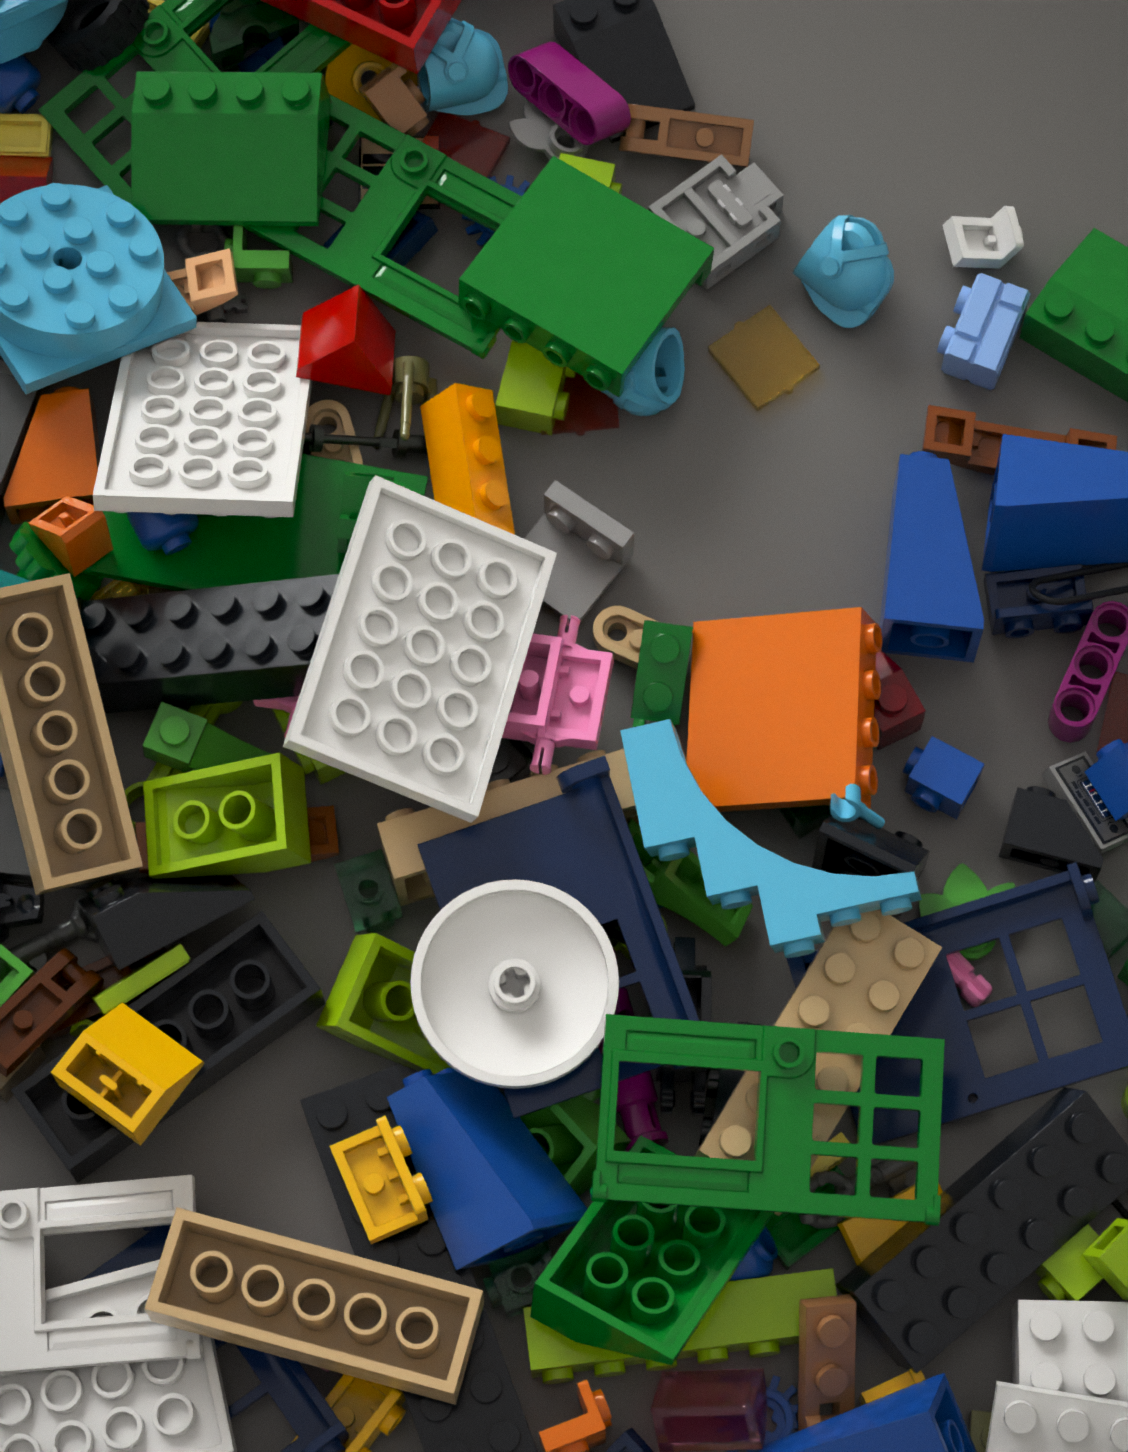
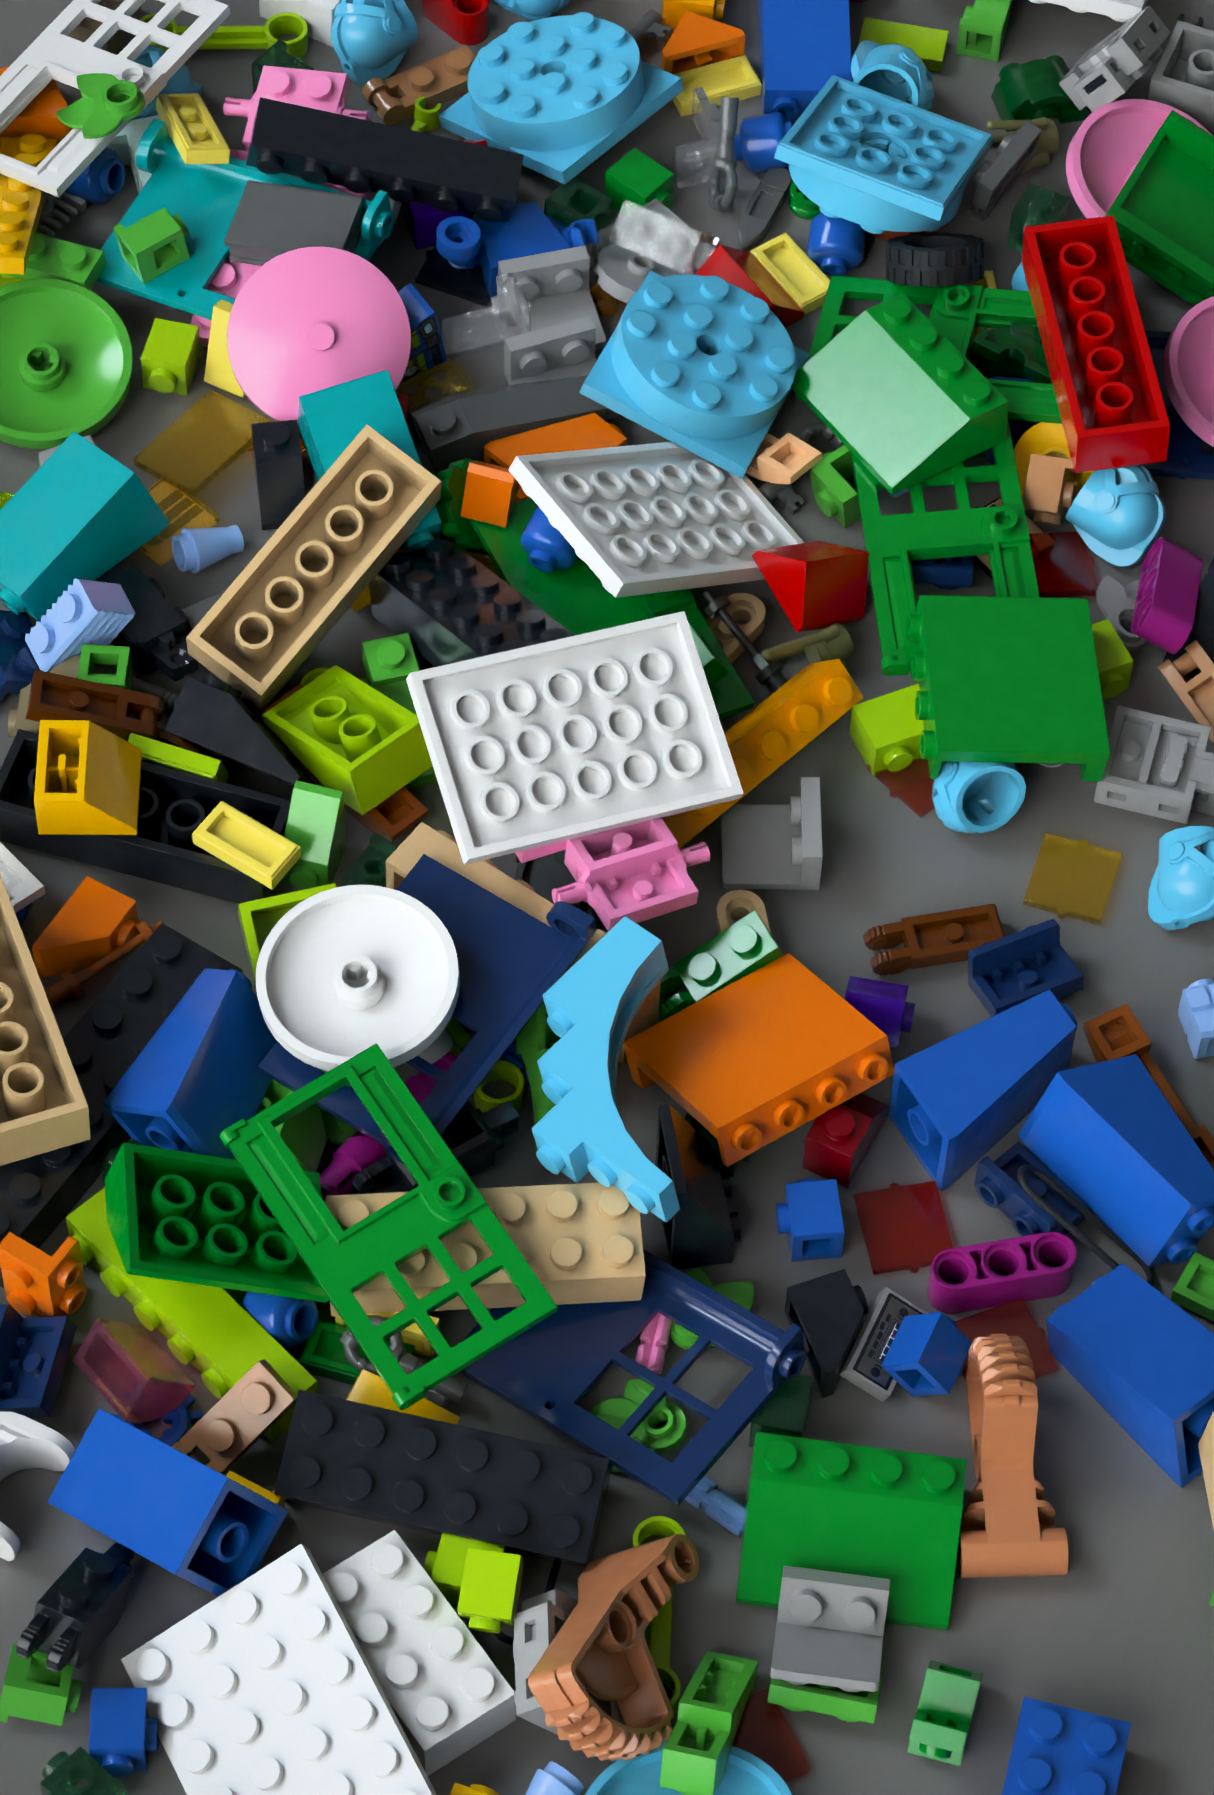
camera: 50 degrees right, 15 degrees down
(244, 1160) = (85, 929): none -> orange slope
(282, 979) = (246, 845): none -> light yellow tile
(283, 1211) = (71, 984): none -> dark orange piece
(301, 918) = (317, 826): none -> bright green slope
(380, 1180) = (133, 1003): yellow bracket -> none
(752, 496) = (932, 938): none -> reddish brown hinge
(791, 588) = (883, 1005): none -> dark purple brick
(834, 459) = (1022, 967): none -> dark blue bracket
(852, 808) = (708, 1123): medium azure hand -> none
(989, 713) = (902, 1226): none -> clear red piece
(1014, 1044) = (664, 1440): none -> bright green plate

